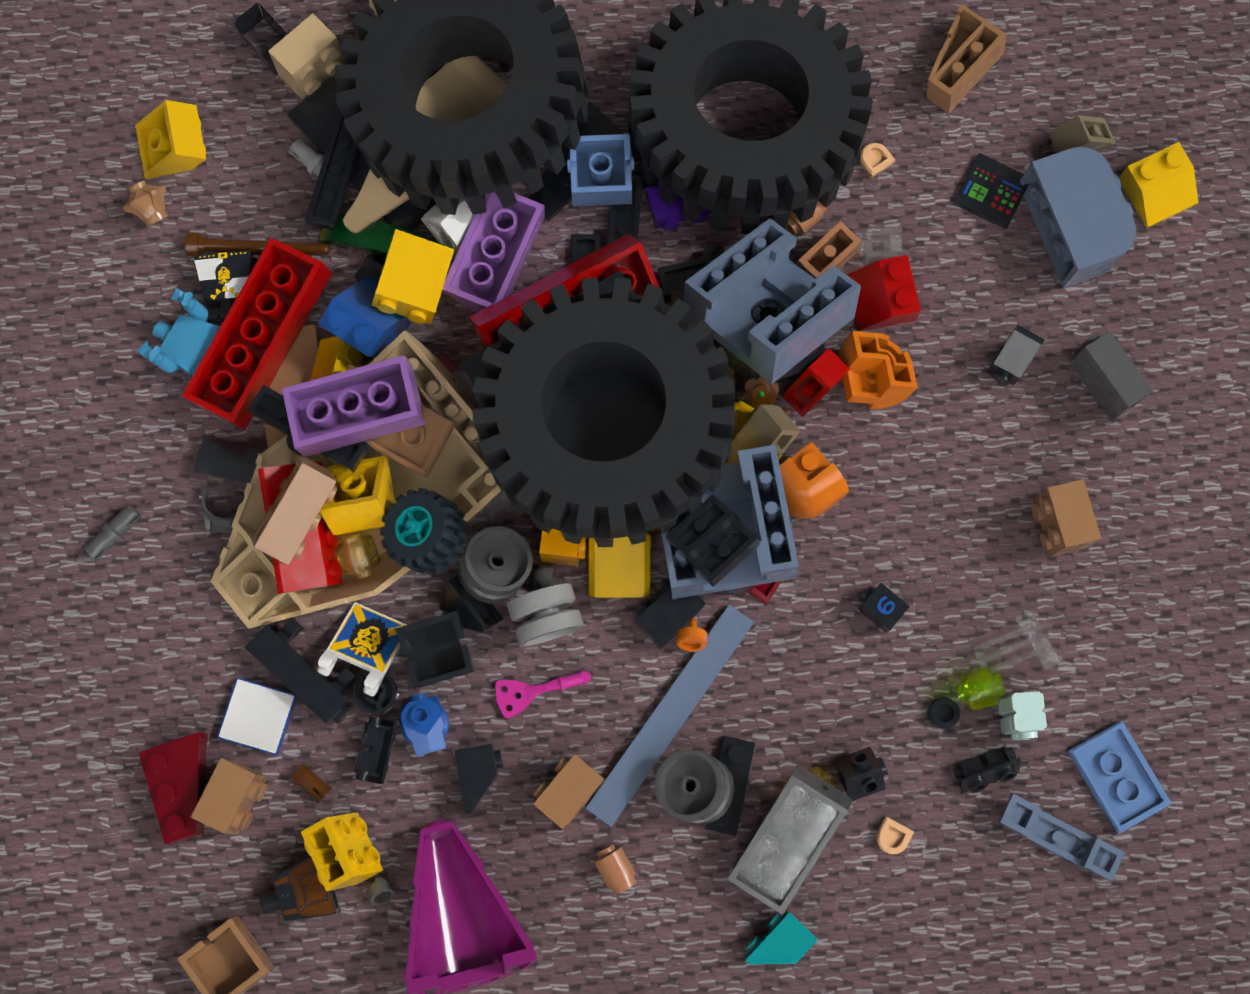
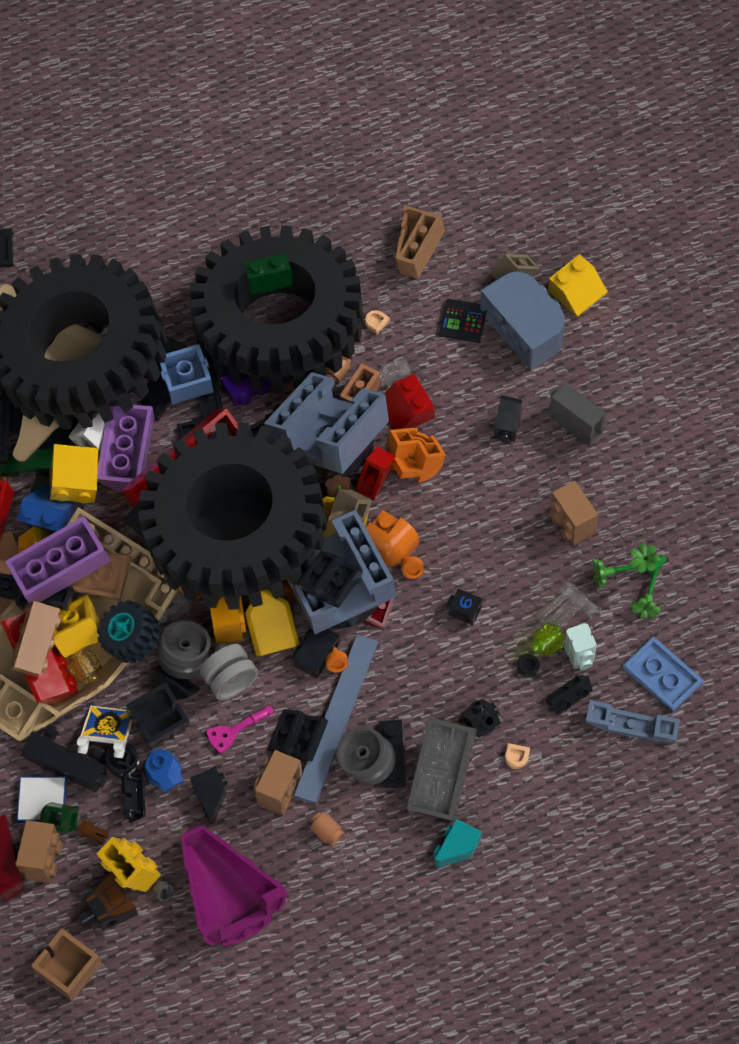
camera: 10 degrees left, 15 degrees down
(270, 756) = (68, 817): none -> dark green brick
(613, 724) = (298, 734): none -> black slope
(749, 62) = (268, 273): none -> dark green brick
(828, 529) = (412, 567): none -> orange tile
(1147, 625) = (644, 561): none -> bright green plant

